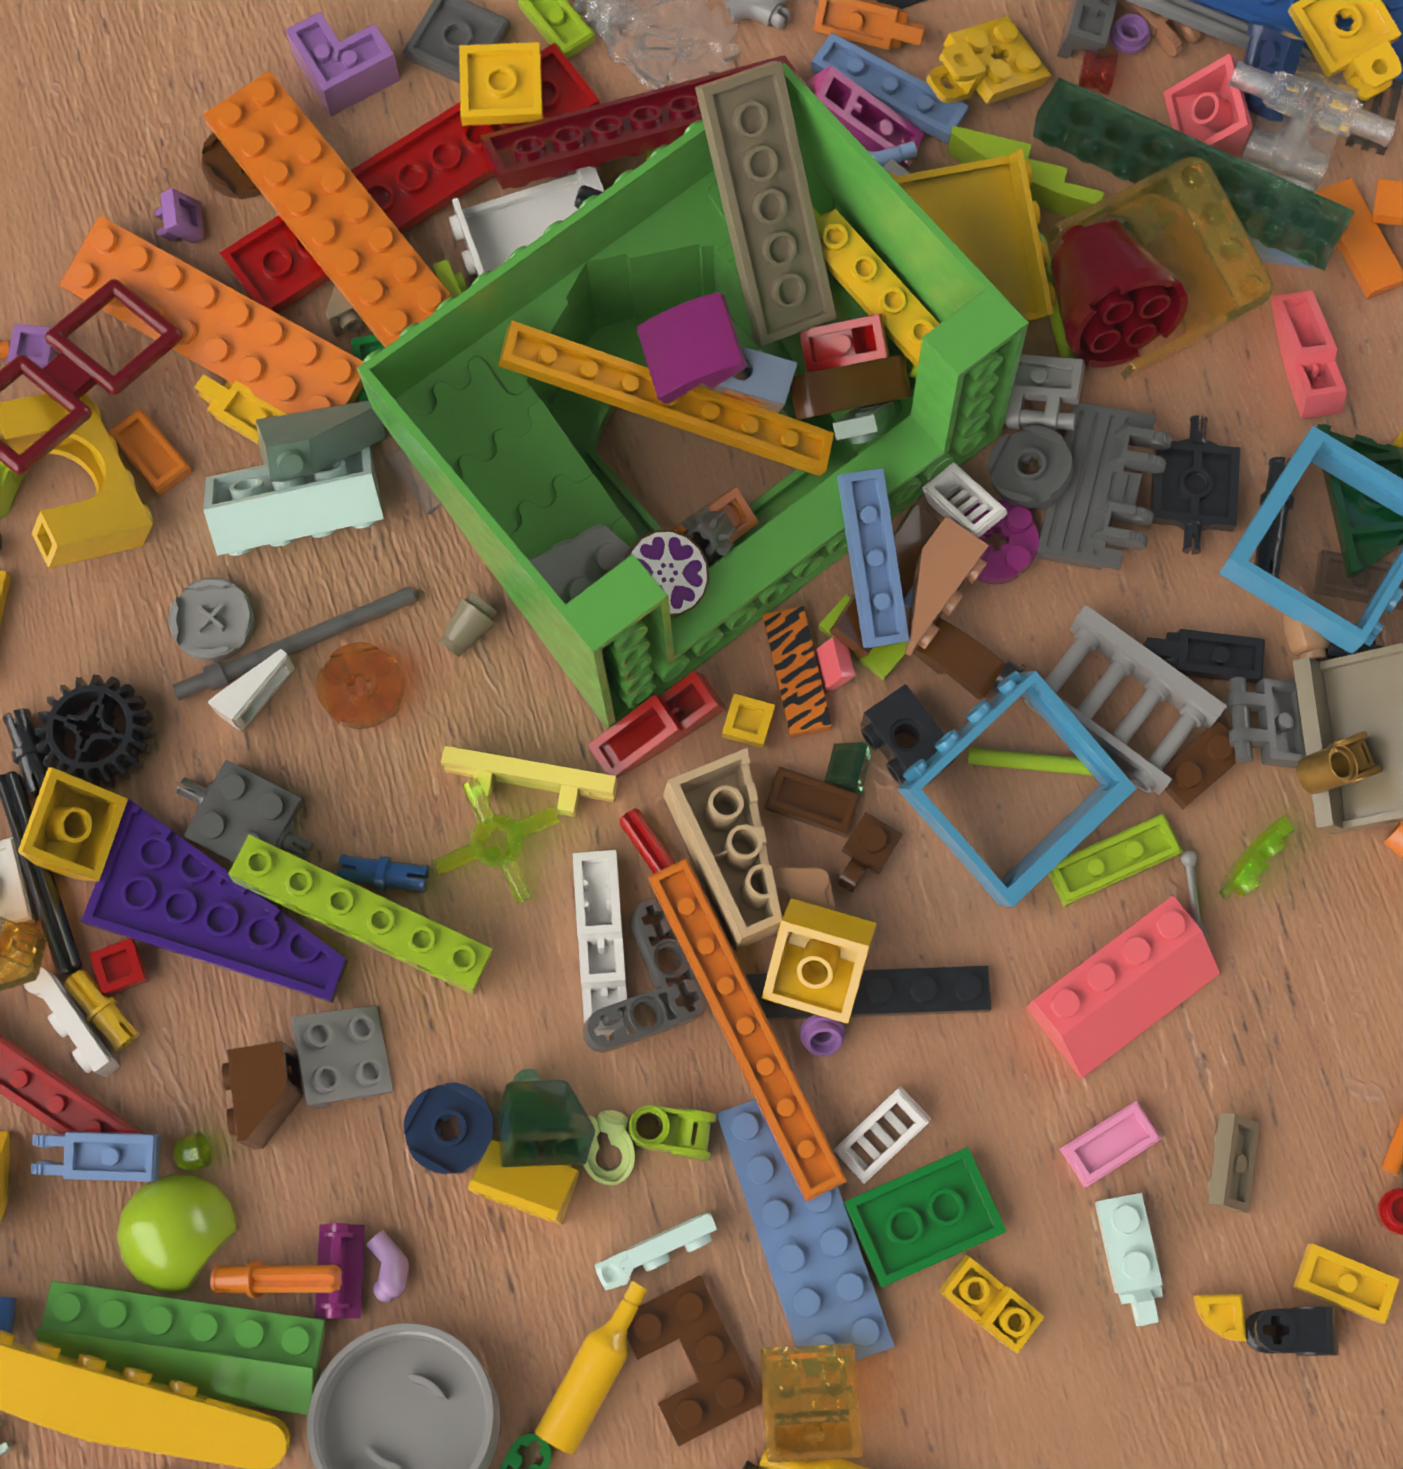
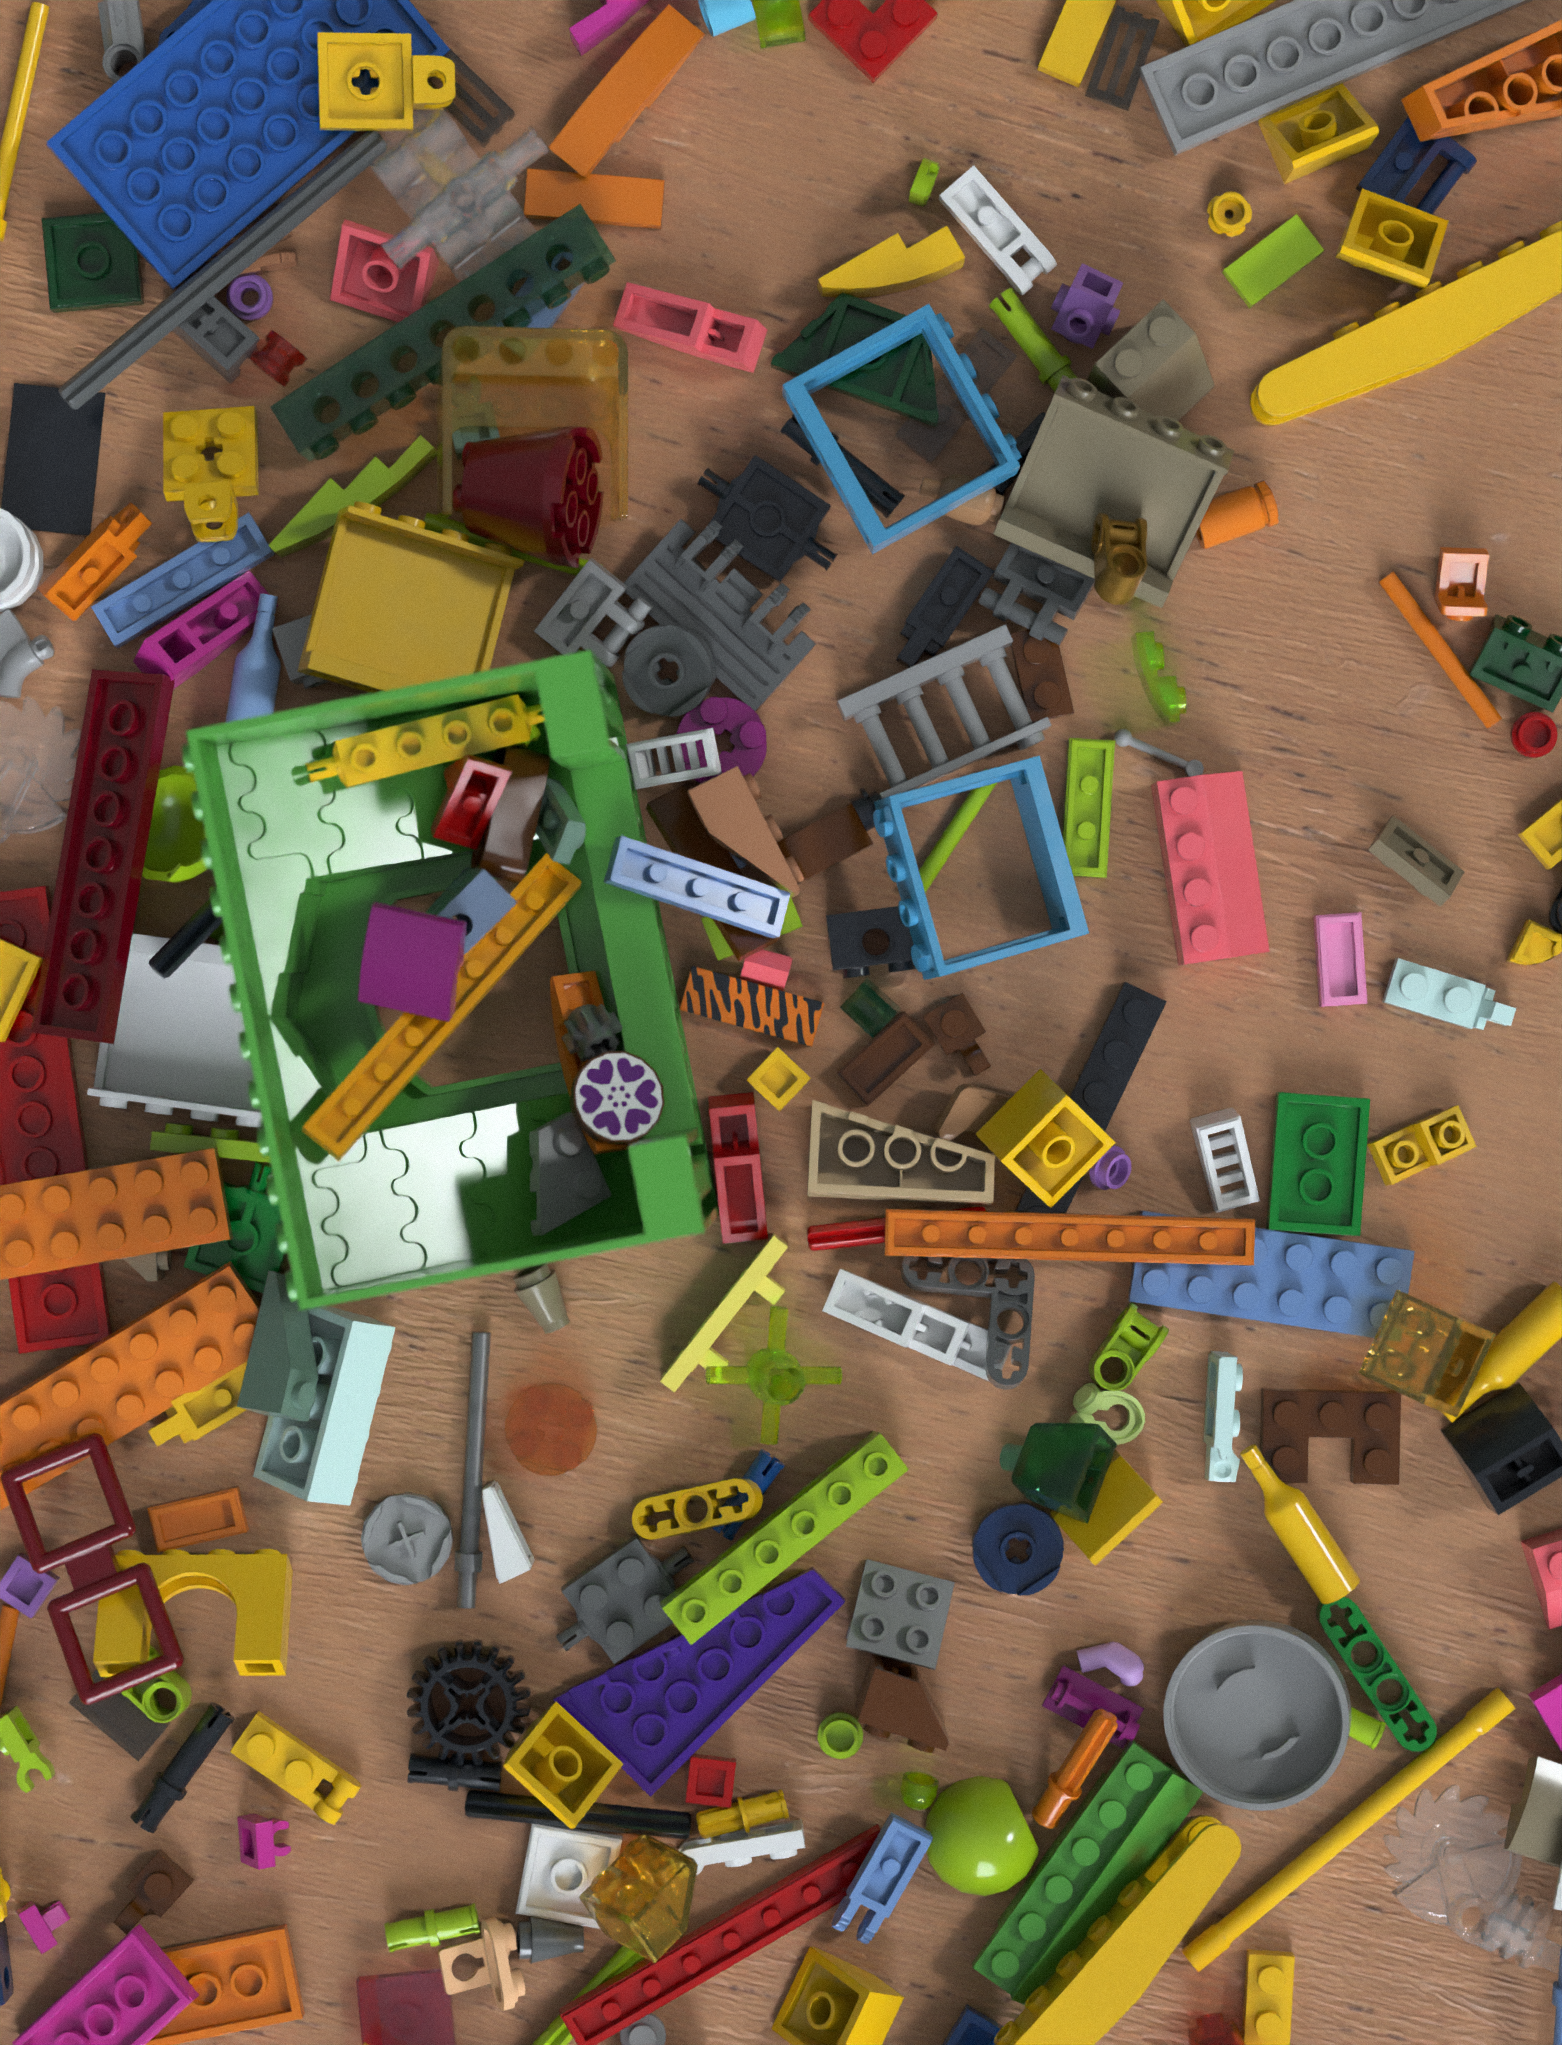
camera: 65 degrees left, 15 degrees up
(206, 1059) = (840, 1735): none -> lime plate
(353, 851) = (664, 1503): none -> yellow beam
(766, 201) = (309, 816): dark tan plate -> none
(1275, 52) = (373, 184): dark blue plate -> none

